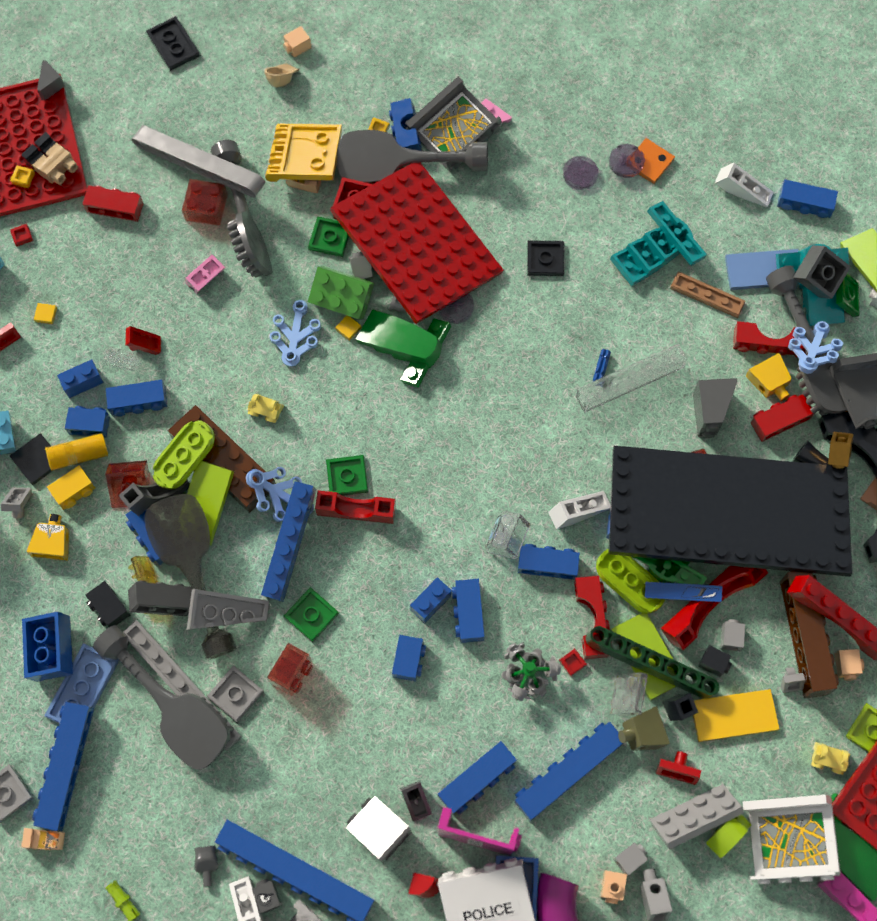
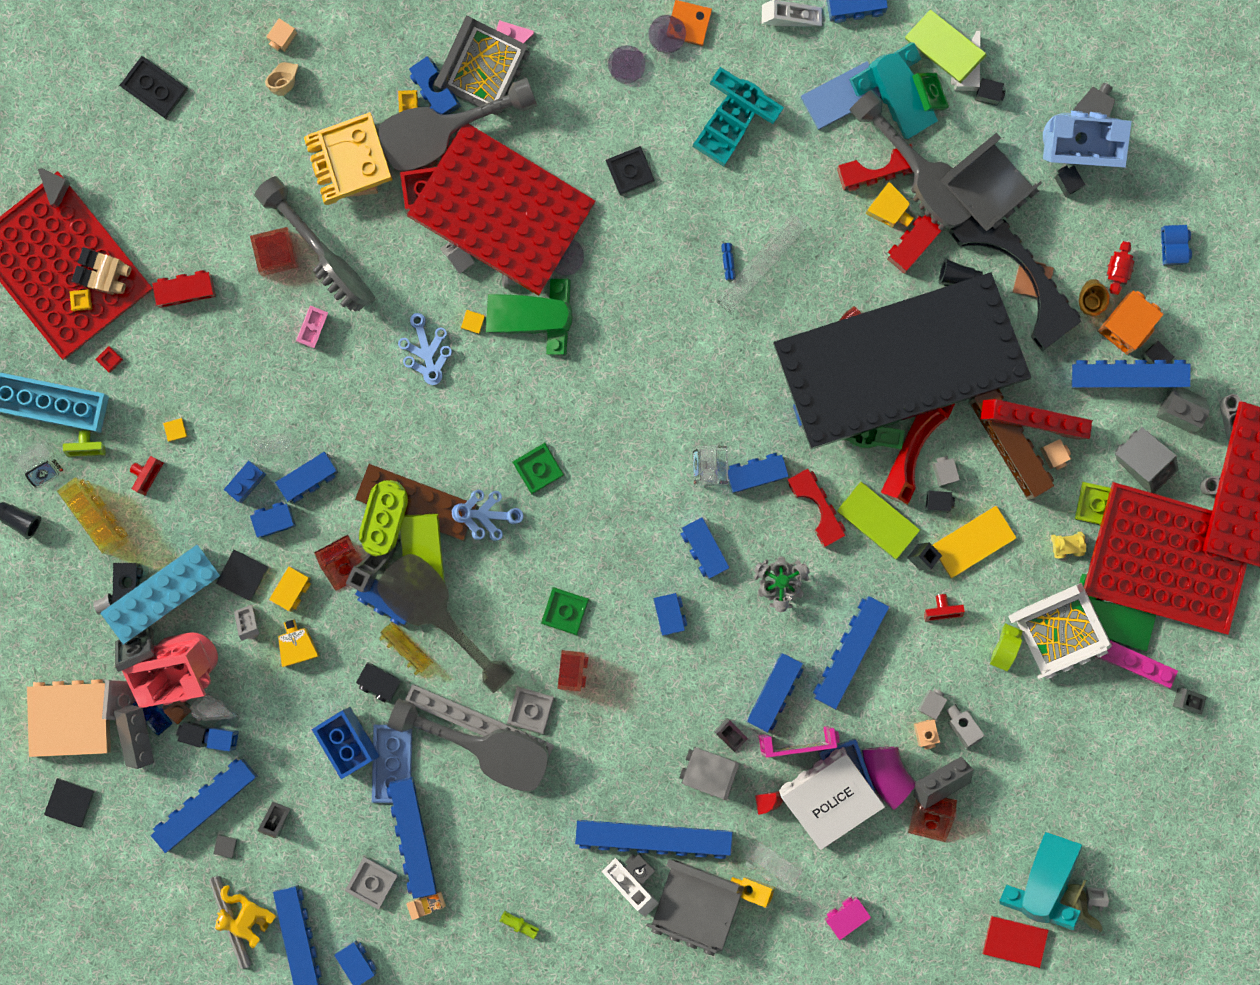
camera: 30 degrees left, 15 degrees up
(84, 449) = (280, 554): yellow piece -> none
(142, 340) = (286, 420): red tile -> none
(159, 598) = (426, 657): dark grey brick -> none
(198, 161) = (249, 213): light grey beam -> none
(206, 862) = (574, 863): dark grey piece -> none
(221, 609) = (483, 646): light grey wing -> none
(266, 407) = (432, 436): light yellow piece -> none
(289, 541) = (516, 556): blue brick -> none
(328, 237) = (410, 237): green tile -> none
(338, 506) = (561, 497): red arch -> none
(340, 292) = (452, 292): bright green brick -> none
(430, 600) = (667, 553): blue brick -> none
(572, 662) = (814, 555): red tile -> none
(578, 509) = (764, 411): white slope -> none
(628, 580) = (838, 462): lime tile -> none
(628, 694) = (876, 564): clear plate -> none
(644, 731) = (901, 590): olive torso -> none
(662, 662) = (894, 528): dark green beam -> none
(683, 591) = (888, 452): blue sticker -> none
(696, 816) = (974, 645): light grey plate -> none
(707, 294) = (799, 144): medium nougat tile -> none
(711, 404) = (847, 261): dark grey slope -> none
(792, 681) = (1012, 490): light grey tile -> none
(809, 363) = (921, 169): light blue plant -> none
(822, 272) = (901, 88): dark grey brick -> none
(840, 449) = (979, 258): pearl gold brick -> none

